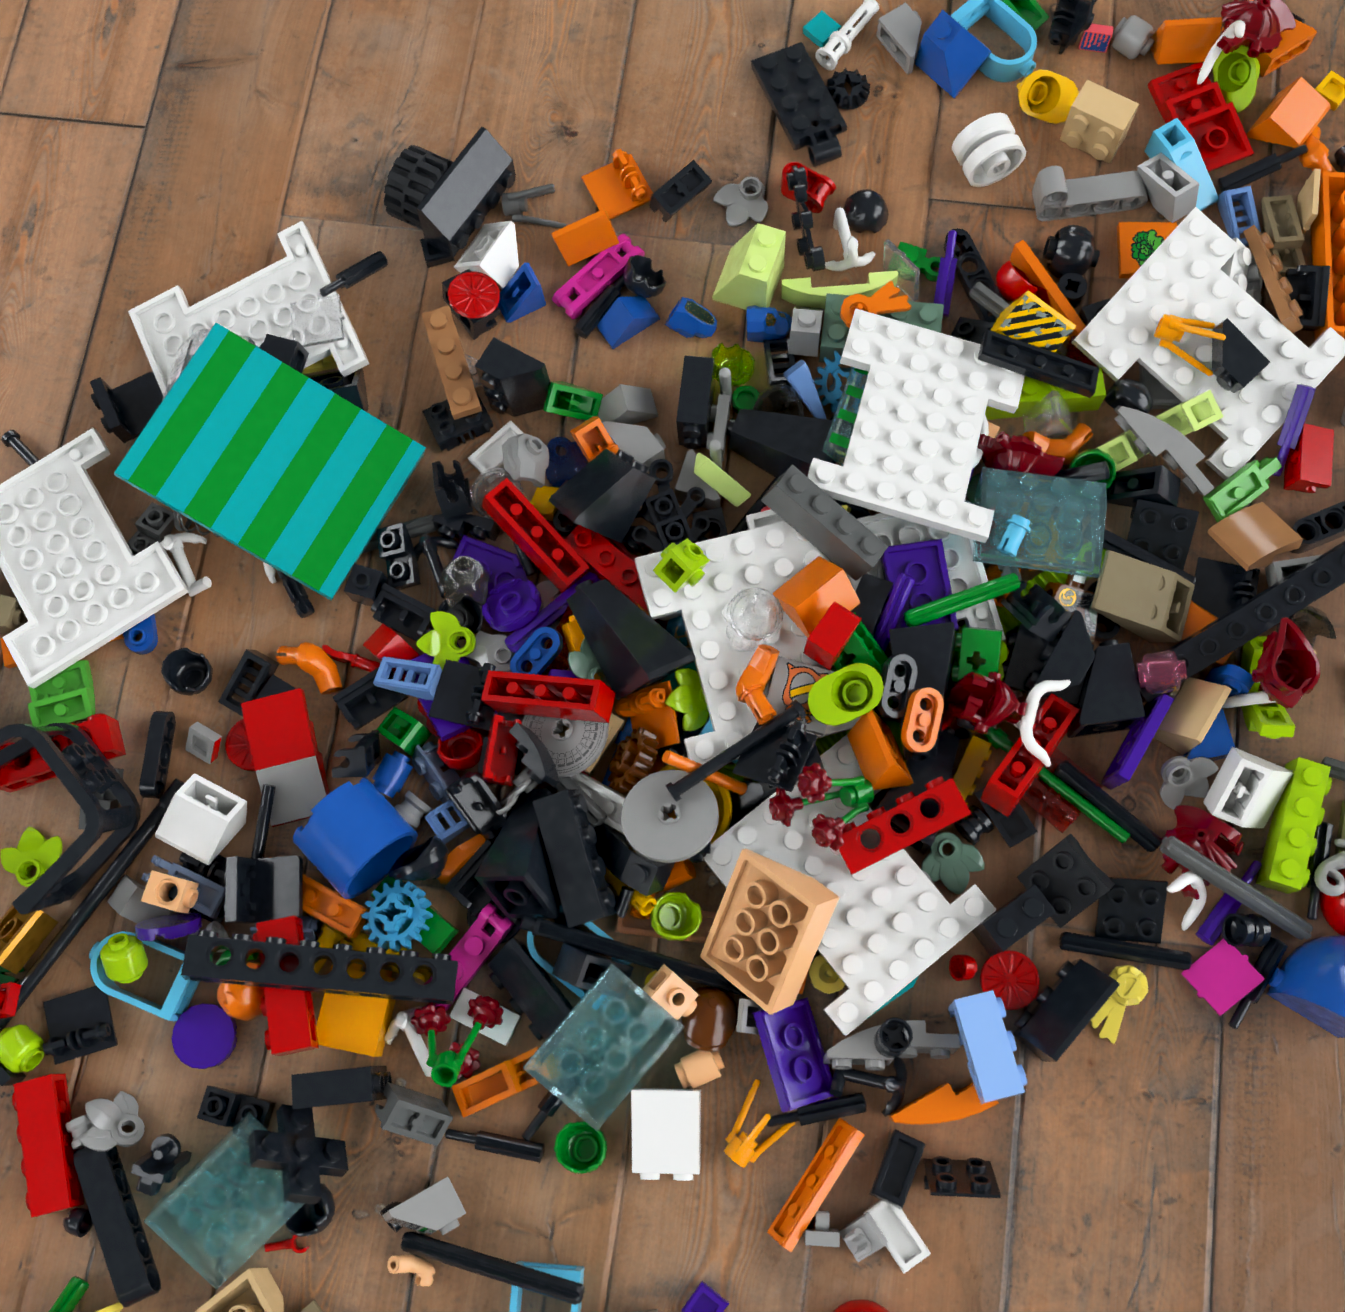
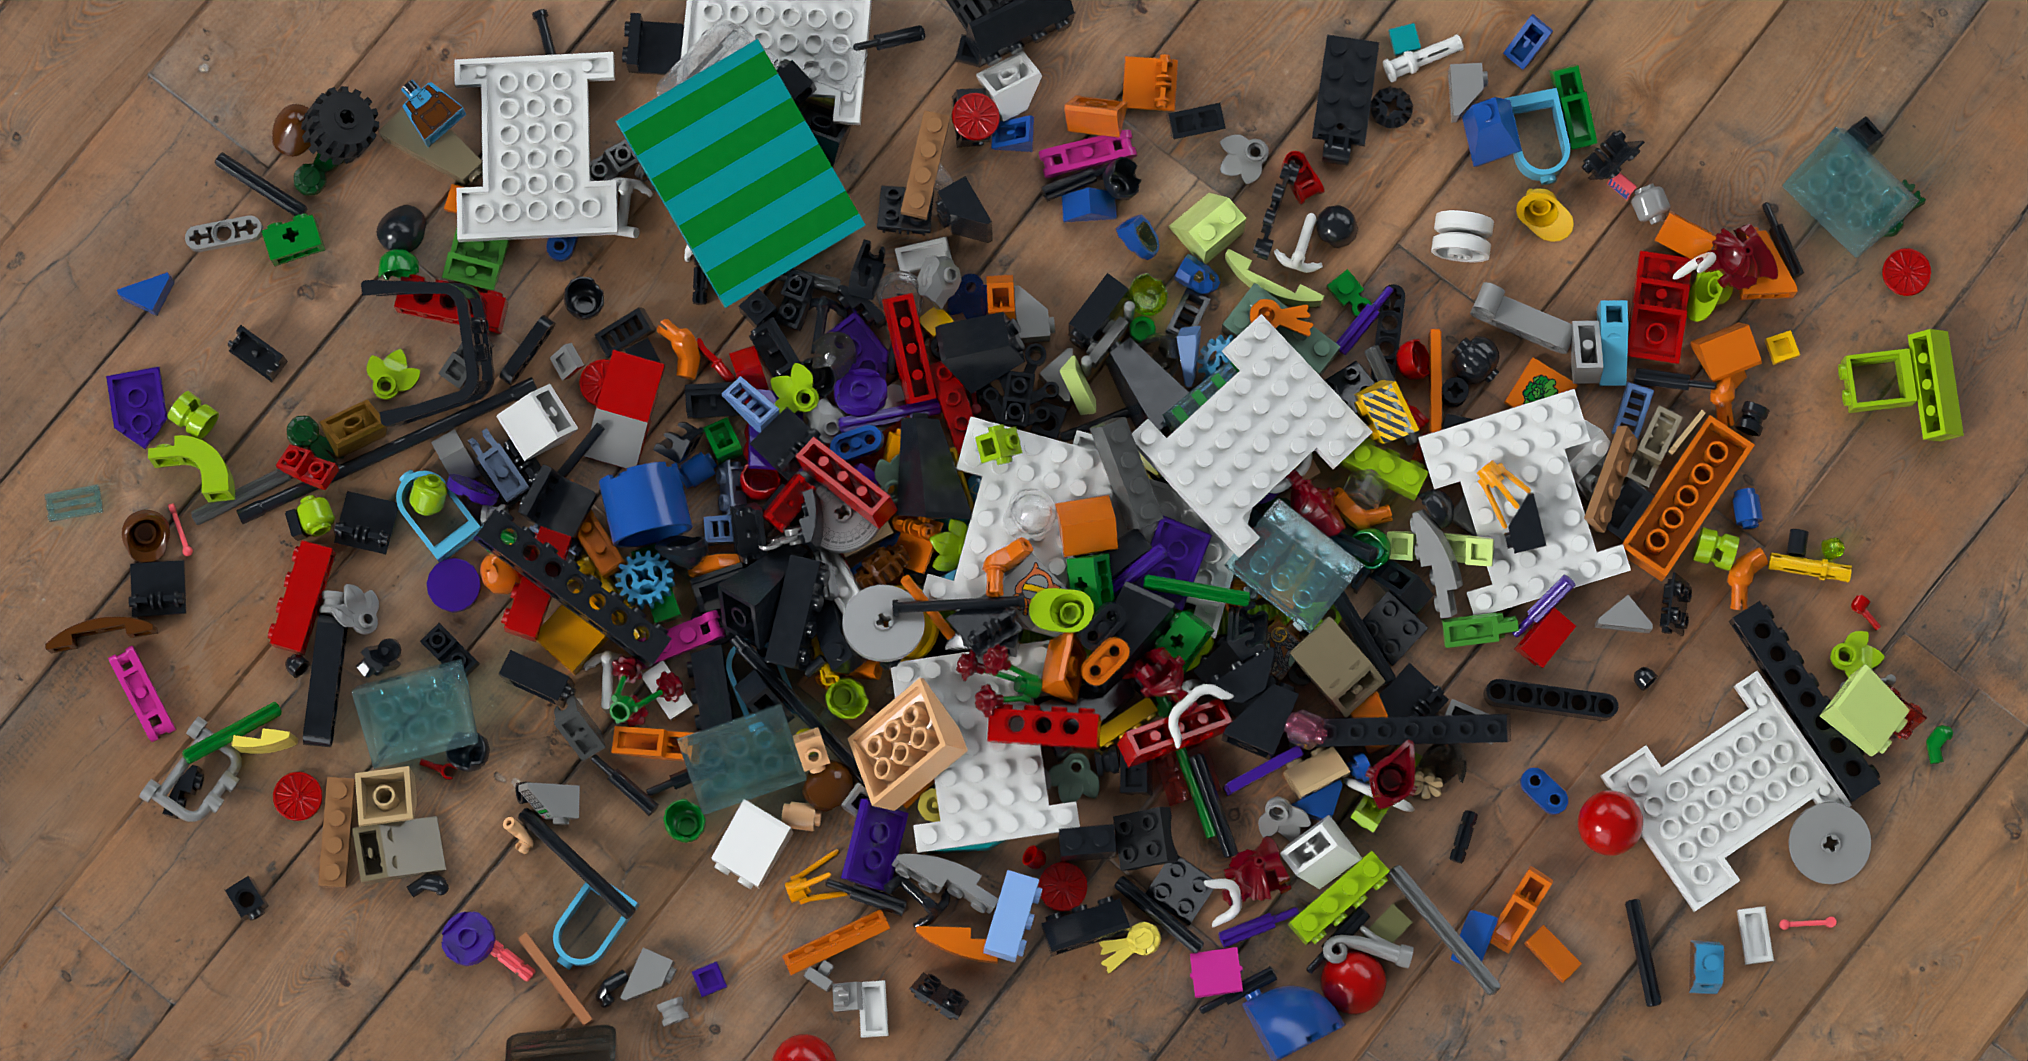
camera: 20 degrees right, 5 degrees up
(158, 892) = (480, 457): light nougat brick -> none
(298, 1154) = (483, 707): black plate -> none
(412, 809) = (698, 506): light grey wheel -> none
(516, 203) = (1058, 49): dark grey plant -> none
(572, 400) = (1003, 251): green slope -> none
(627, 405) = (1044, 280): light grey slope -> none
(805, 331) = (1223, 299): light grey slope -> none
(831, 635) = (1078, 561): red slope -> none
(897, 1169) = (900, 966): black tile -> none
(898, 1033) = (953, 868): black wheel -> none
(907, 271) = (1327, 300): clear piece -> none
(1014, 535) = (1262, 564): medium azure pin -> none
(1038, 363) = (1374, 441): black tile -> none
(1098, 121) = (1566, 264): tan brick -> none
(1235, 887) = (1260, 913): dark grey axle -> none
(1246, 930) = (1251, 948): black wheel -> none
(1255, 536) = (1458, 671): medium nougat slope -> none

